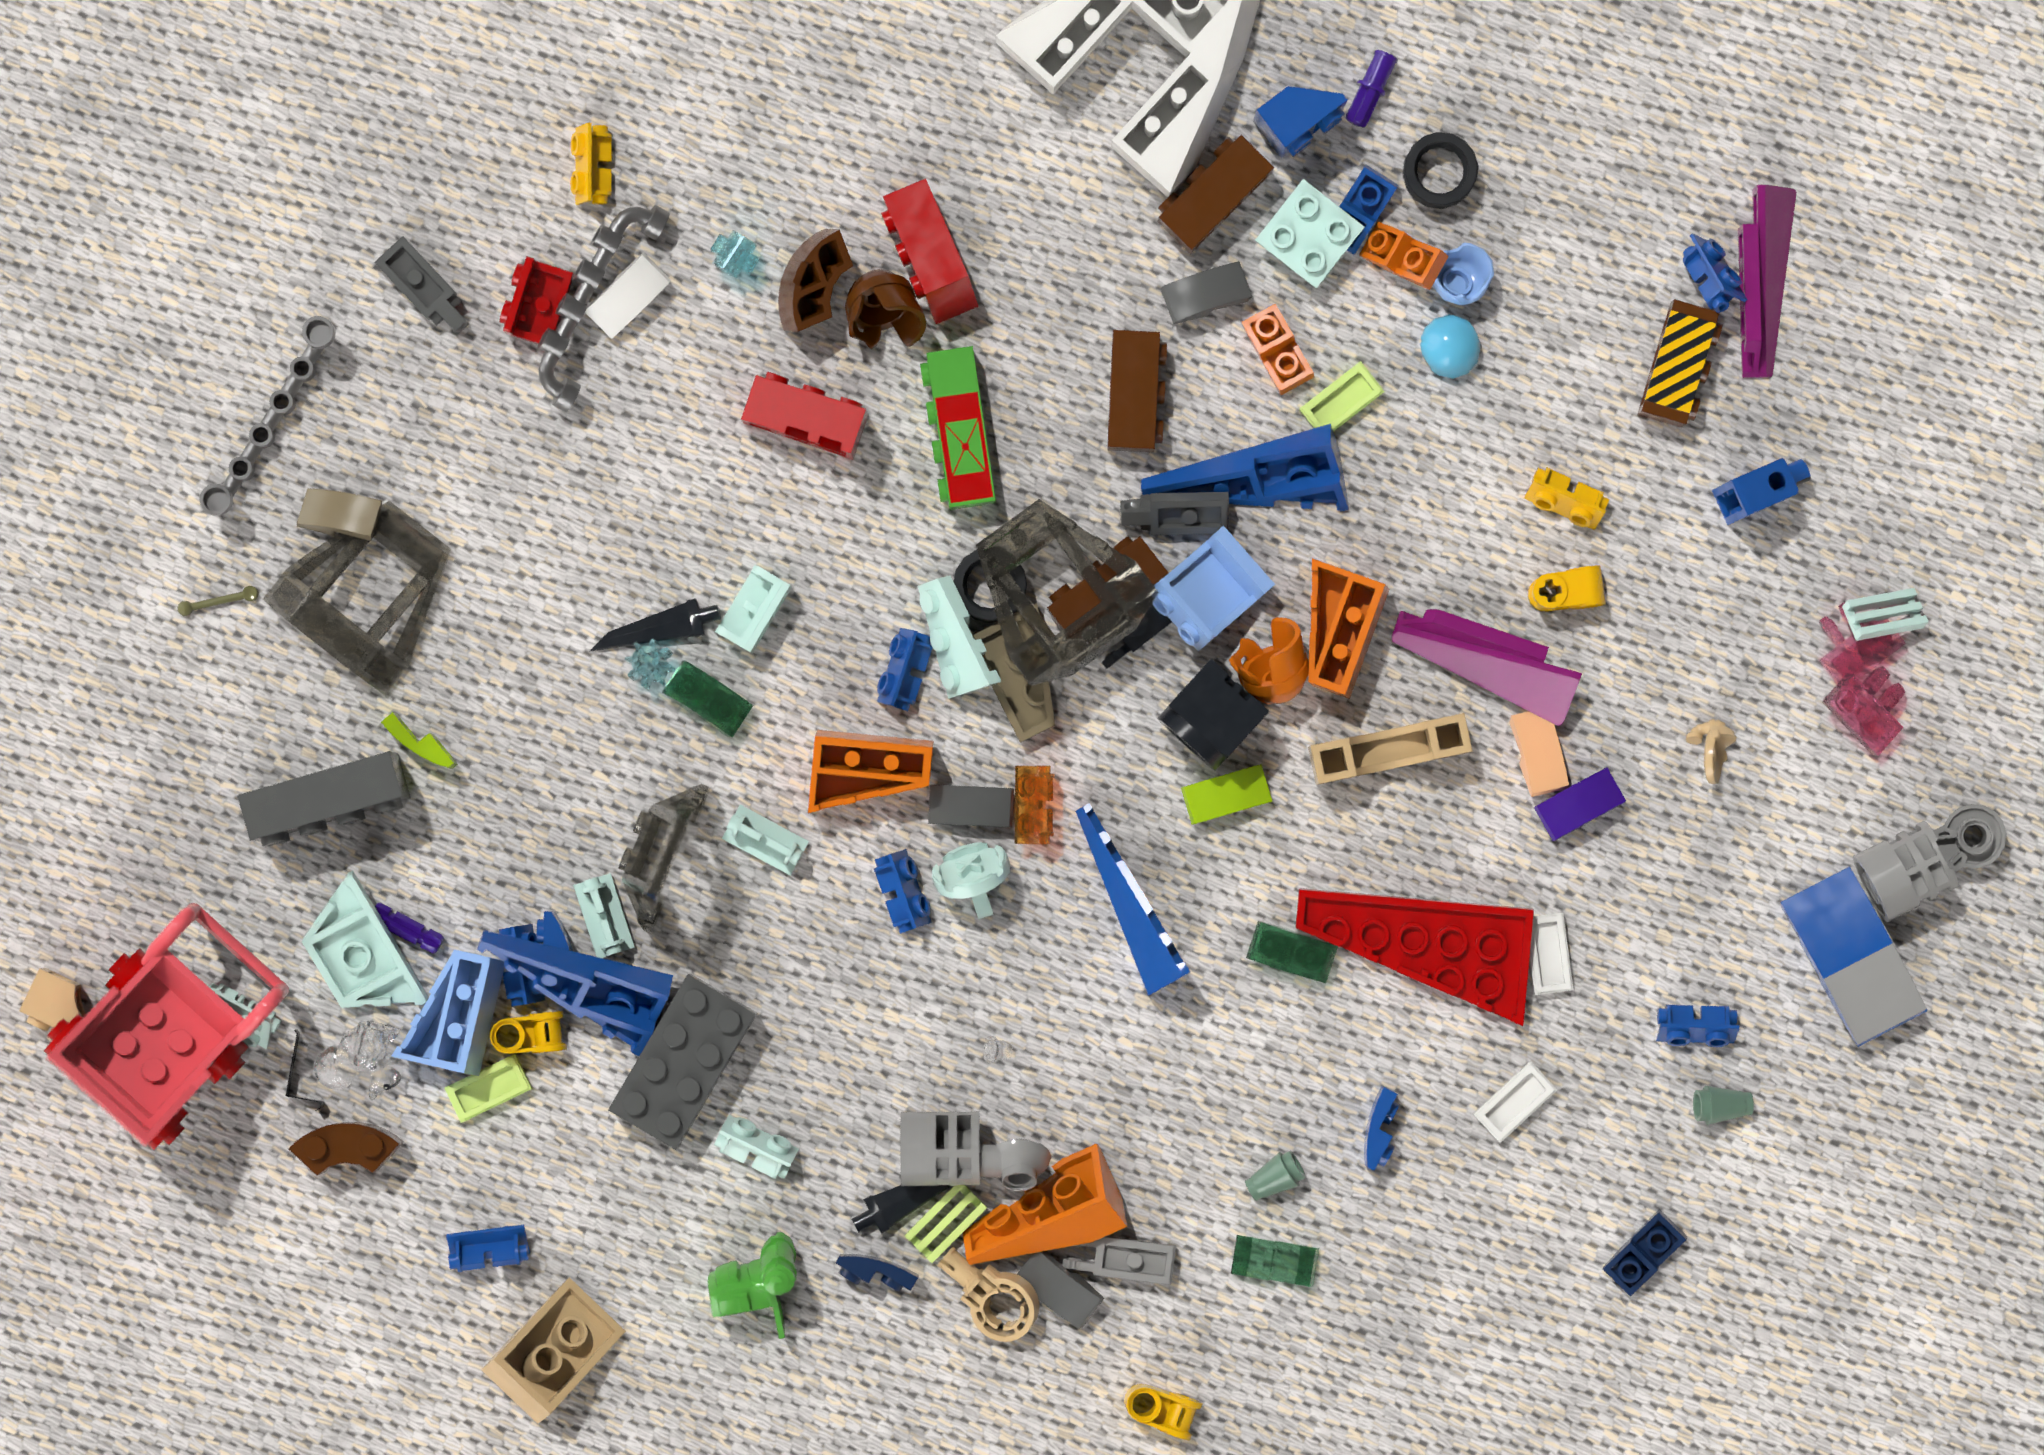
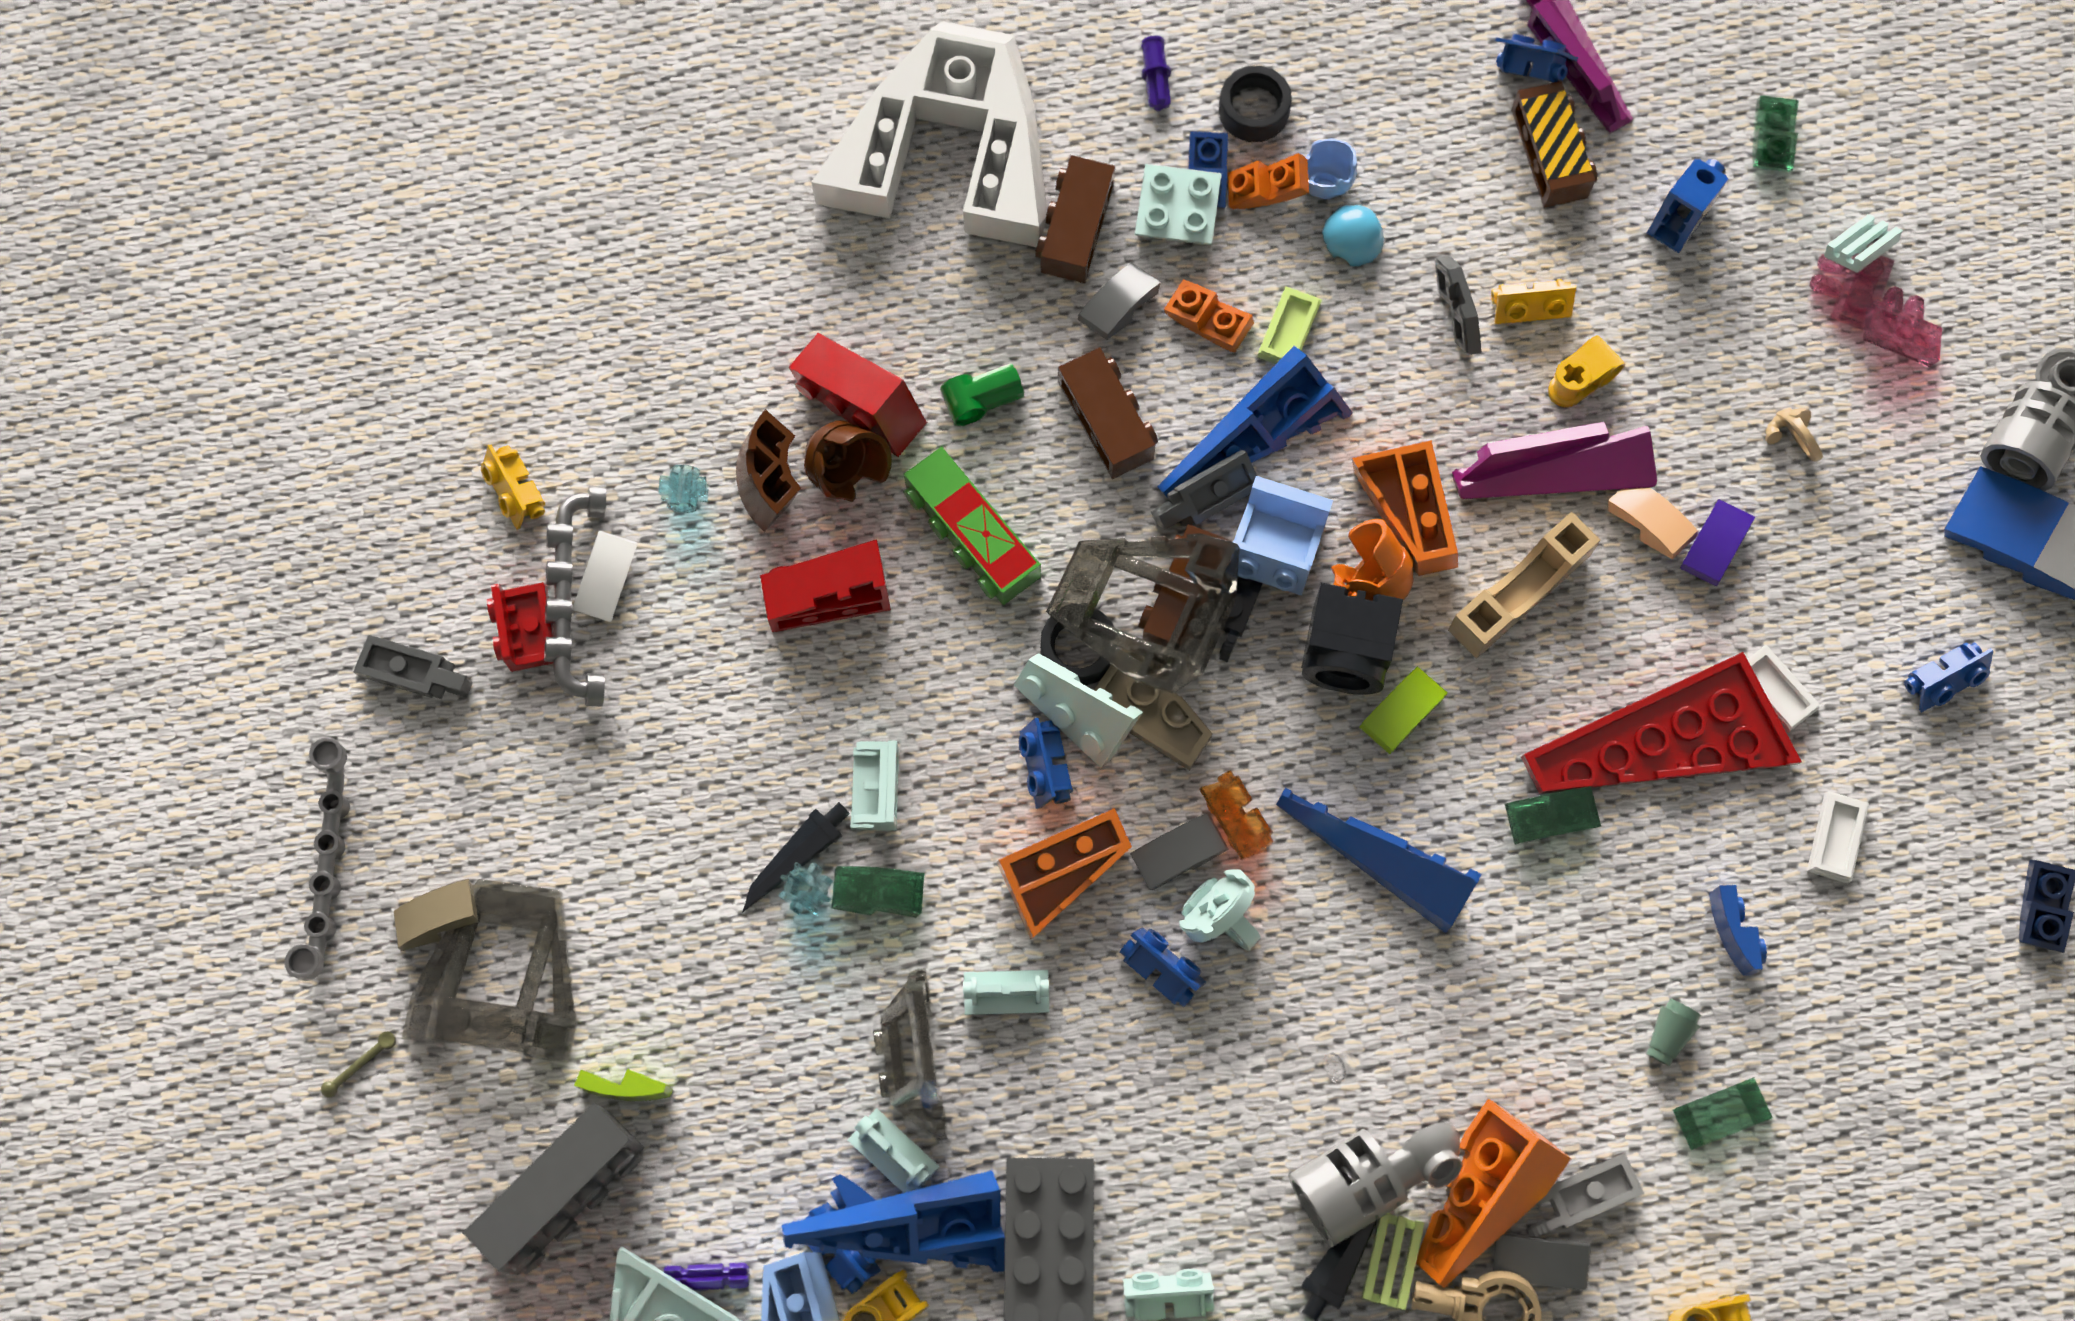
camera: 25 degrees left, 15 degrees down
(1026, 309) = (971, 397): none -> green piece
(1297, 114) = (1109, 114): blue slope -> none
(1495, 469) = (1455, 290): none -> dark grey tile
(1721, 1104) = (2019, 732): sand green cone -> none
(1885, 465) = (1775, 133): none -> clear green slope

